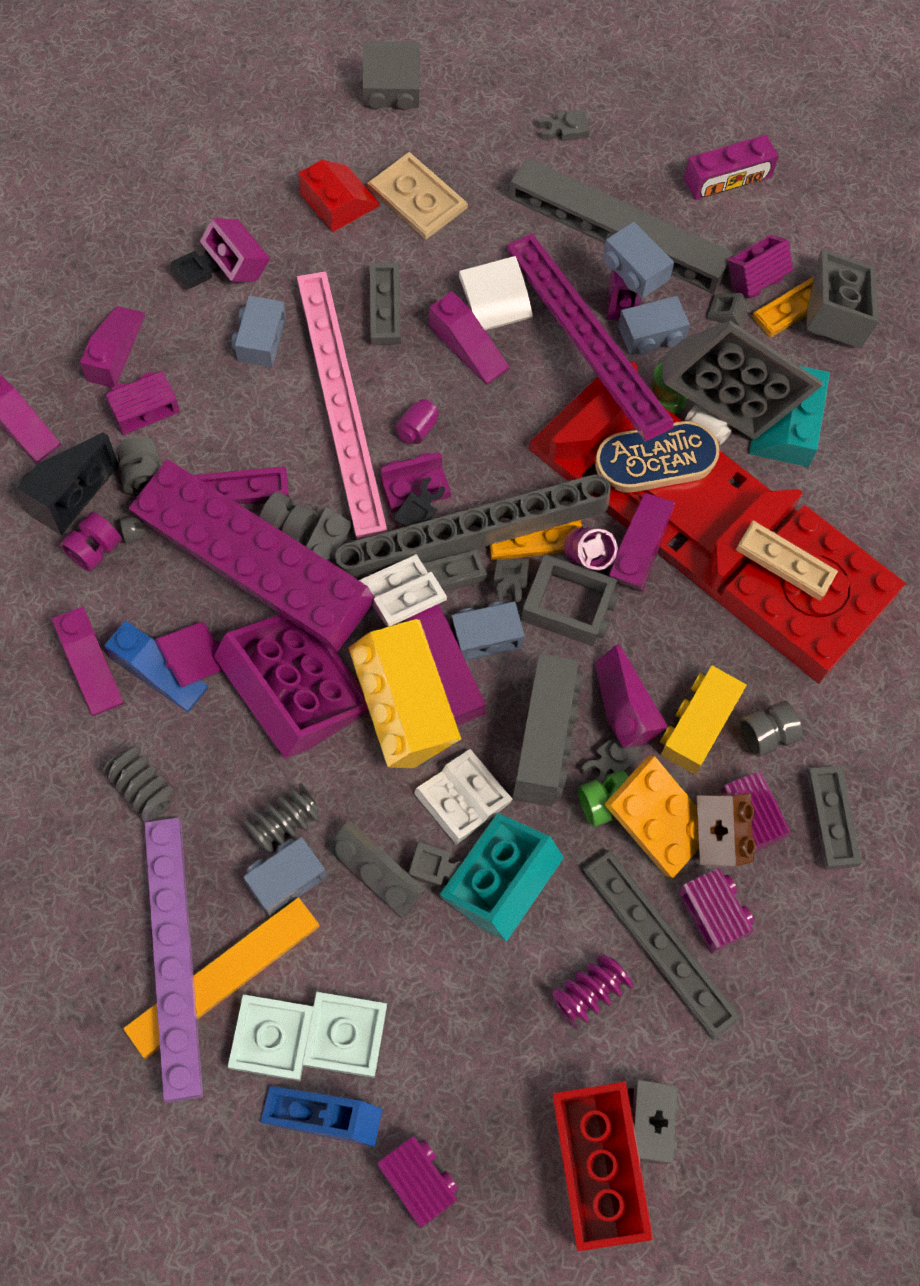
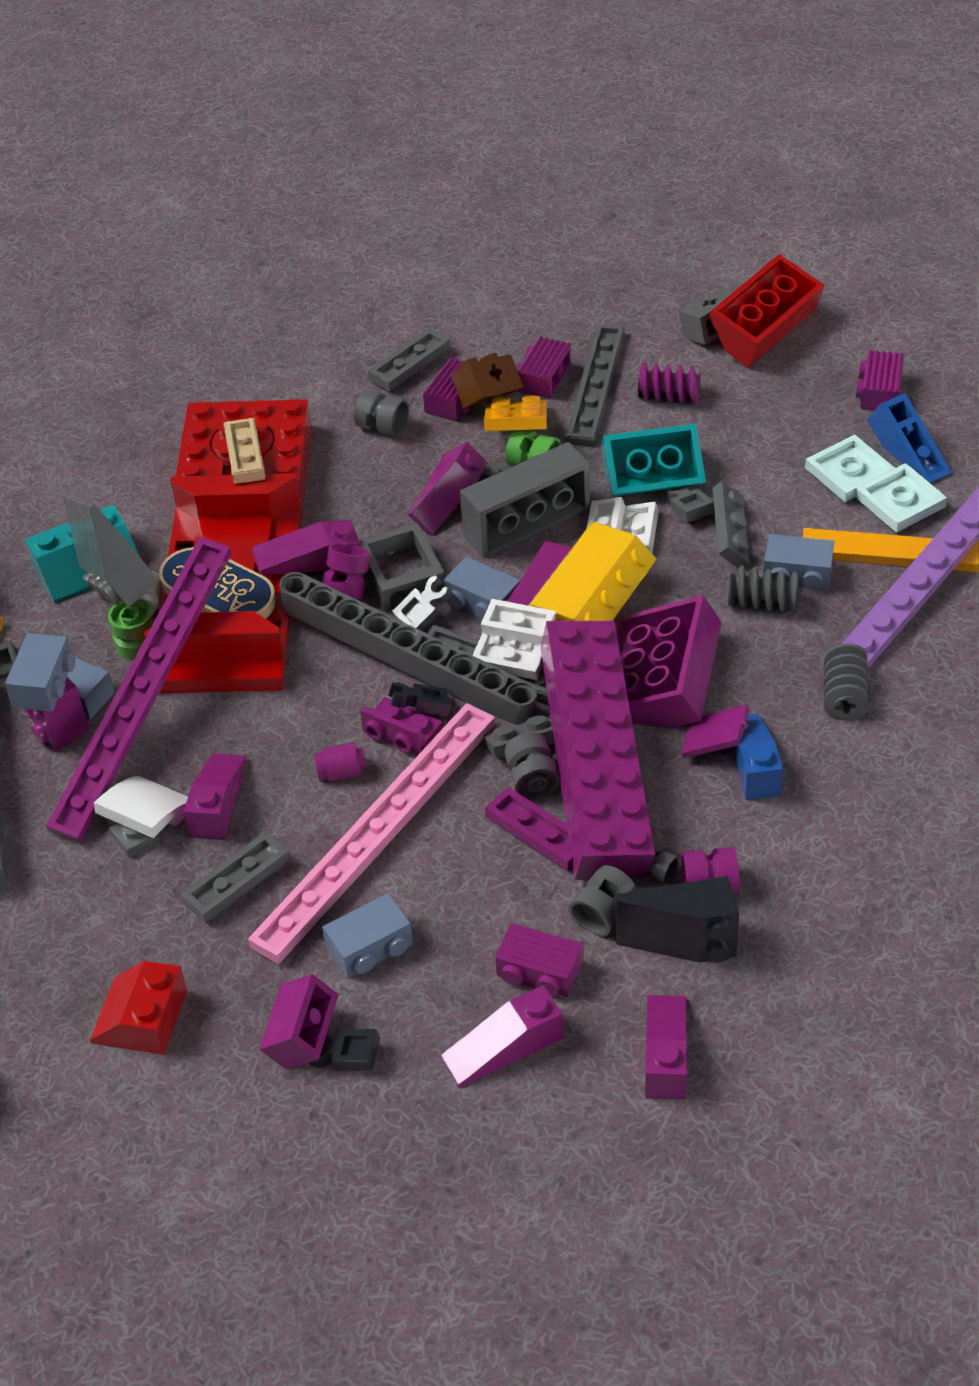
camera: 125 degrees left, 20 degrees down
(87, 661) = (800, 799): magenta slope -> none
(417, 195) = (74, 956): tan tile -> none
(701, 719) = (410, 447): yellow brick -> none

